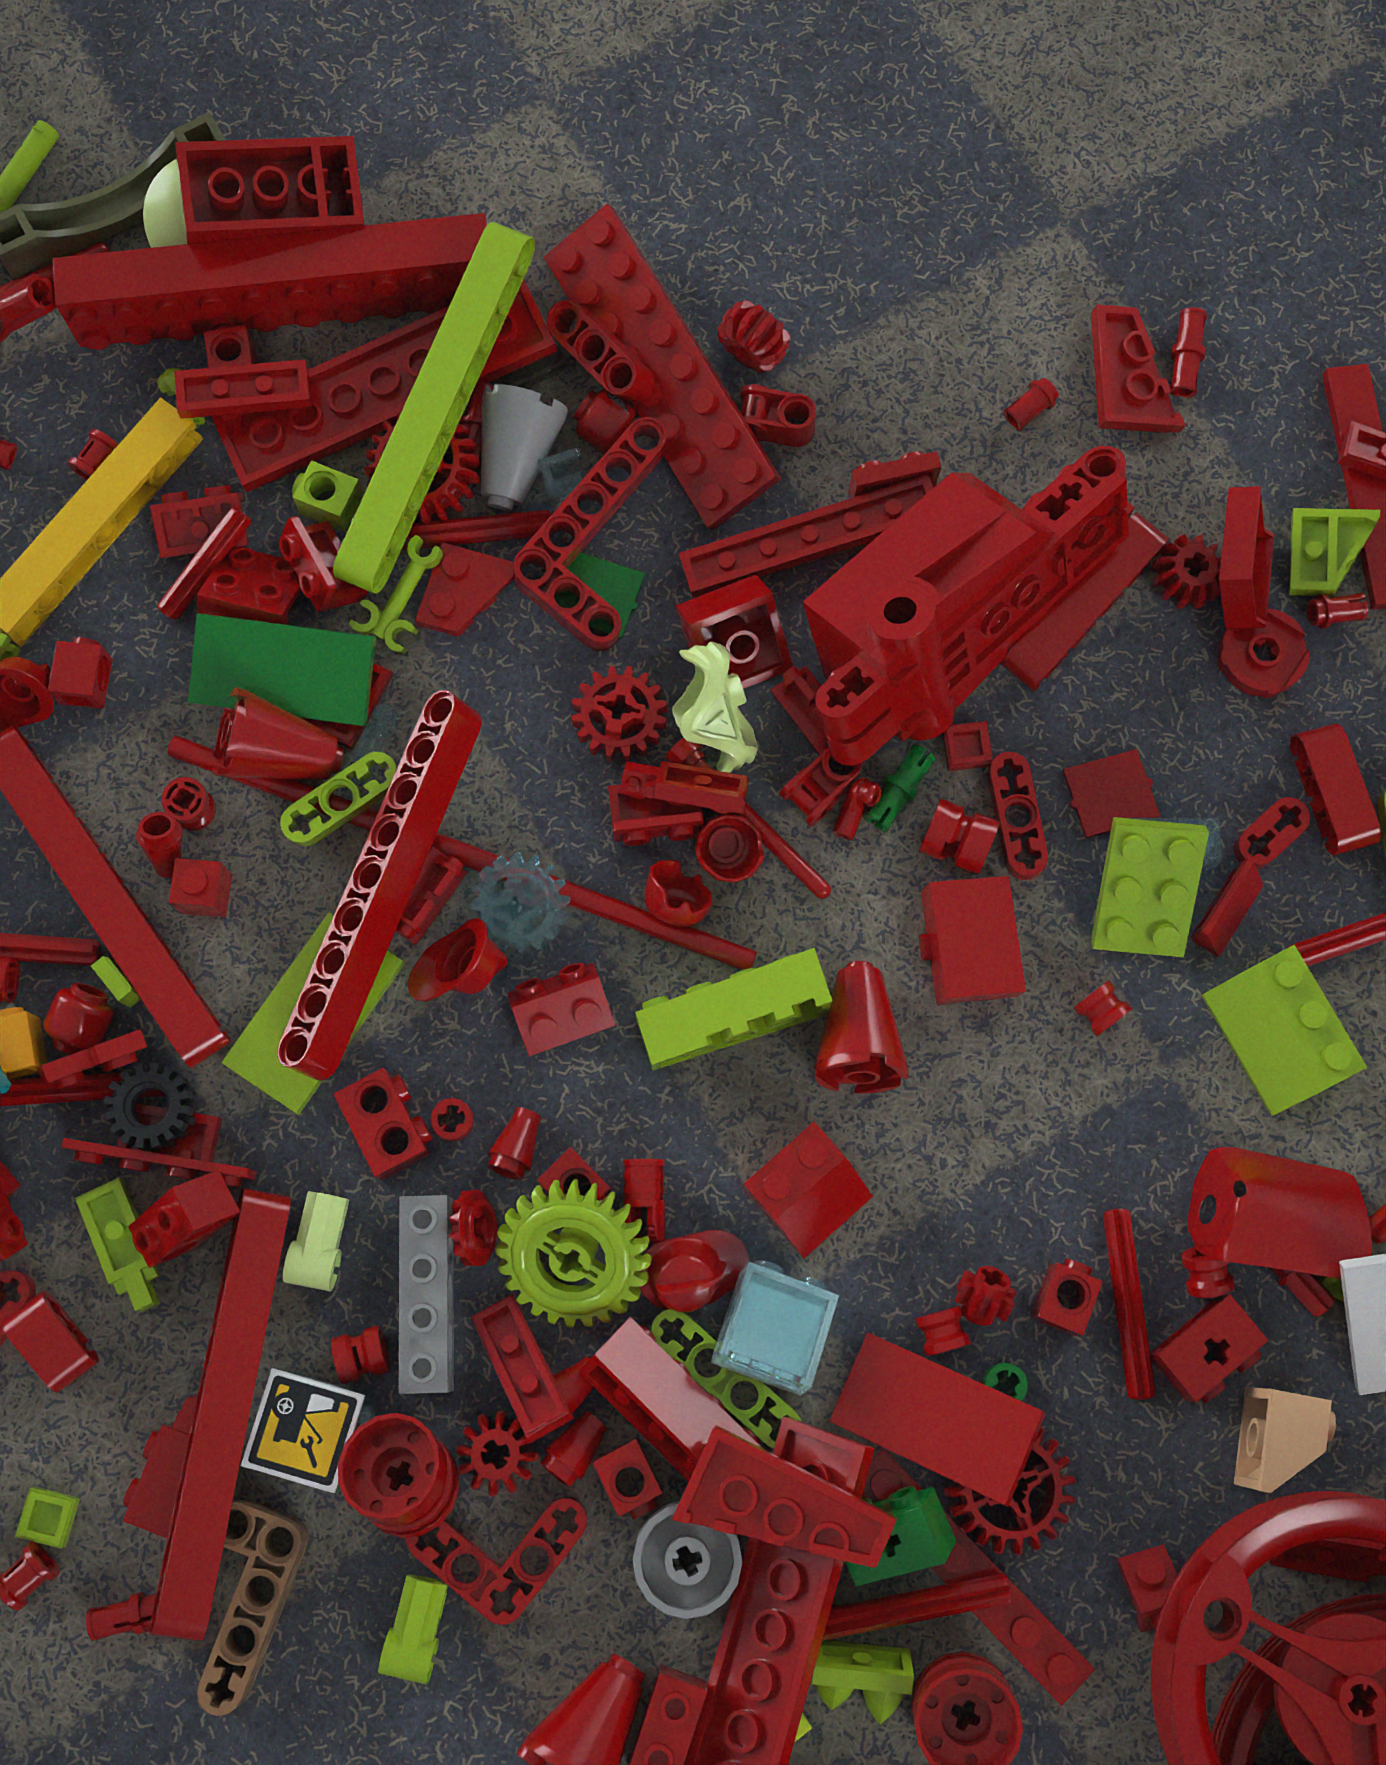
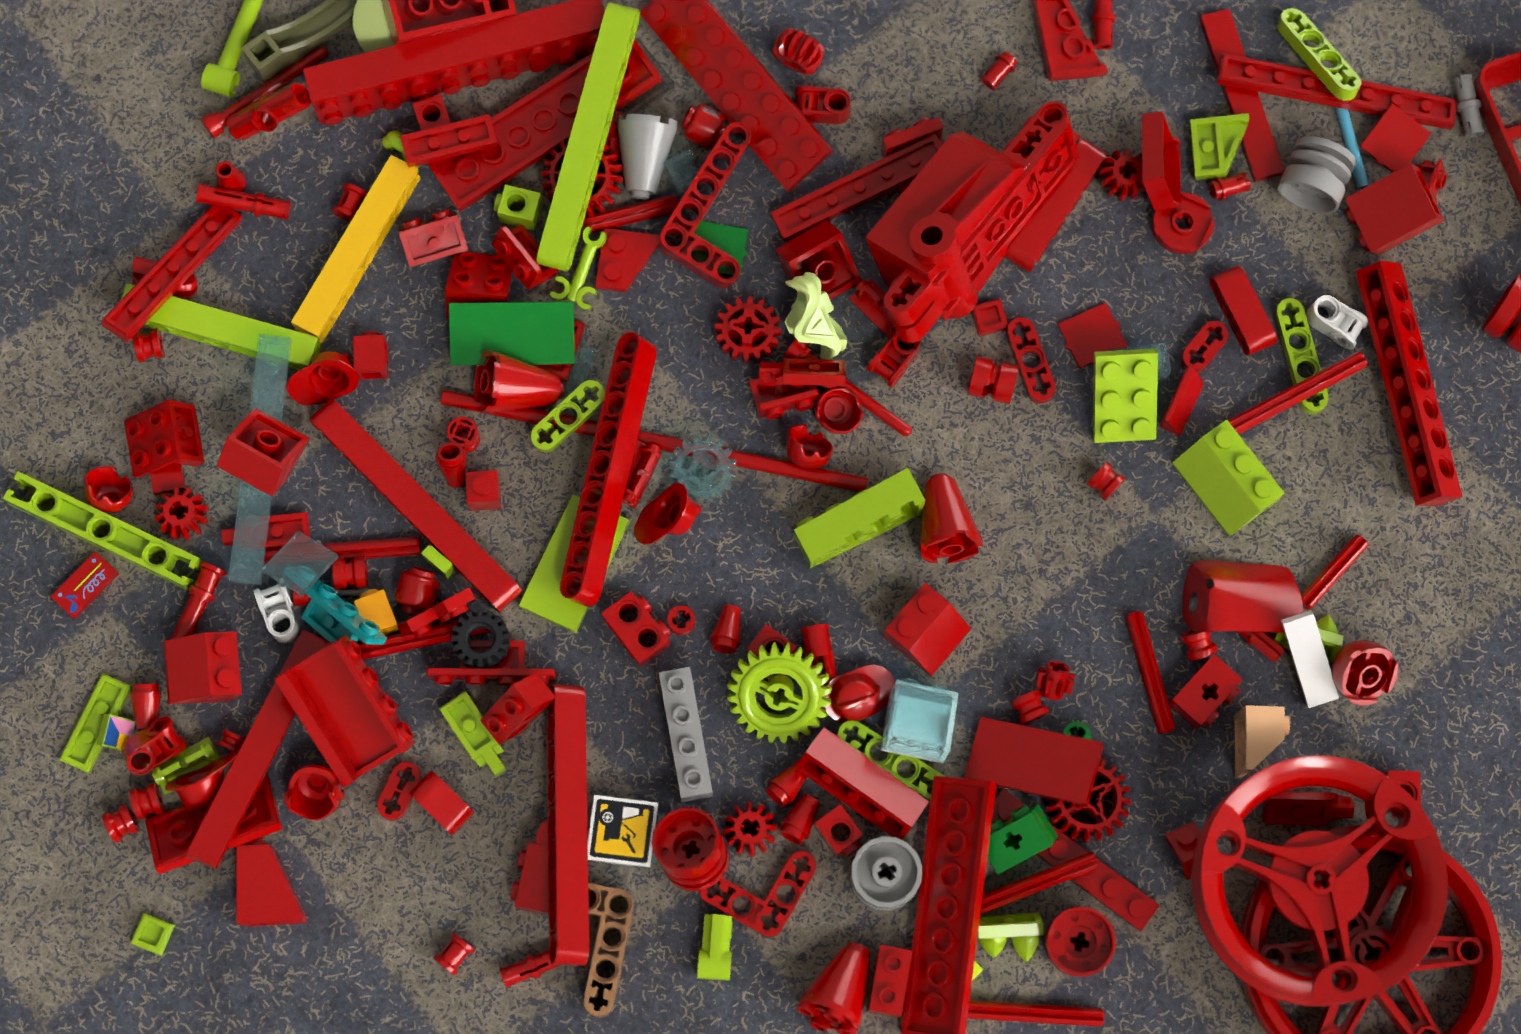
camera: 10 degrees left, 0 degrees up
(47, 1517) = (459, 916): lime tile -> none
(203, 563) = (442, 267): red axle -> none
(316, 1251) = (606, 721): yellowish green piece -> none
(360, 1354) = (655, 777): red wheel -> none
(473, 1228) = (709, 687): red gear -> none
(522, 1368) = (757, 771): red tile -> none
(560, 1008) = (741, 535): red bracket -> none
(584, 344) = (706, 81): red beam -> none
(770, 1499) = (935, 822): red wing -> none
(860, 794) = (921, 362): red arm -> none
(900, 787) = (948, 353): green pin -> none
(971, 940) = (1011, 449): red container -> none
(1051, 1312) = (1108, 687): red brick -> none

